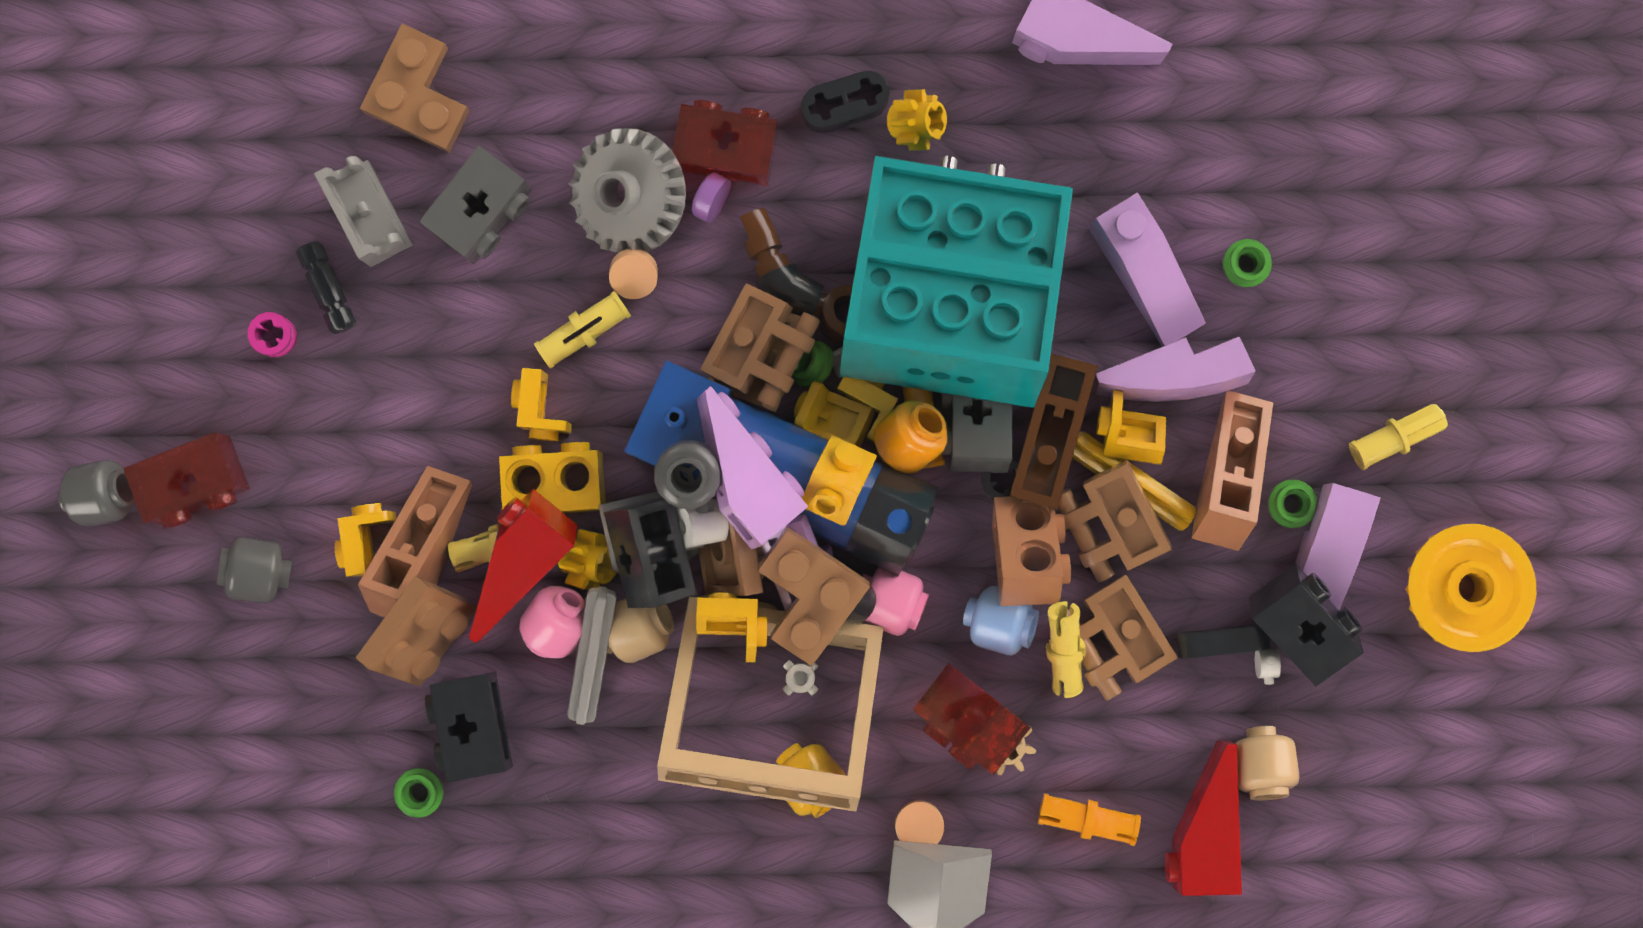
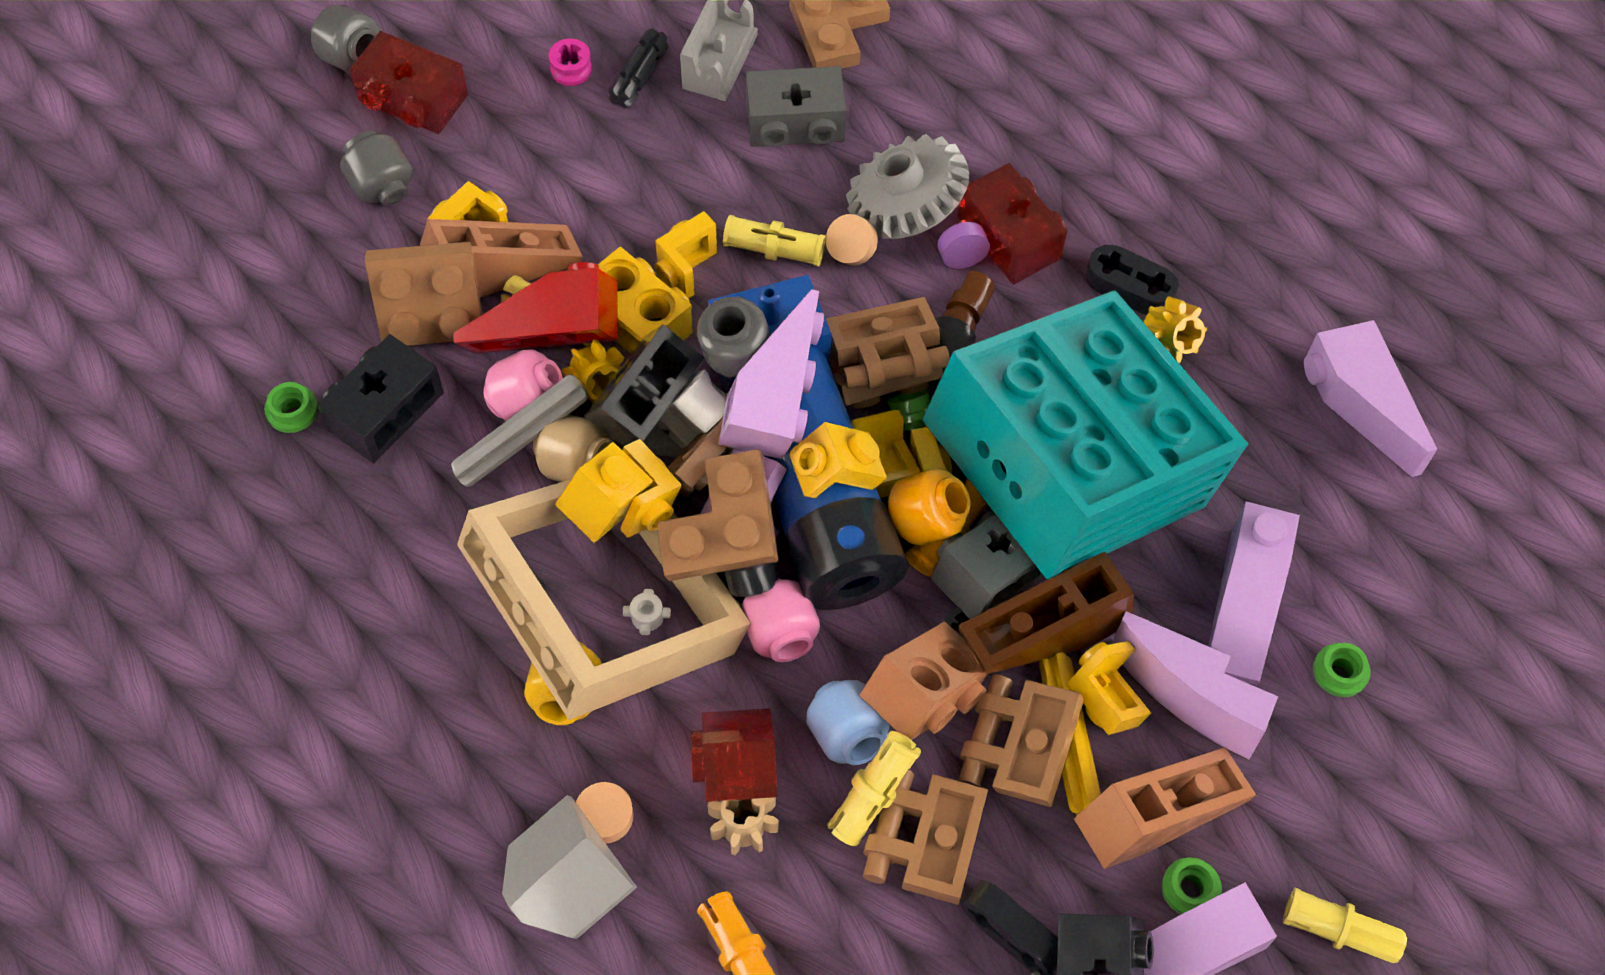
camera: 45 degrees right, 25 degrees down
(718, 657) = (603, 492): none -> yellow brick

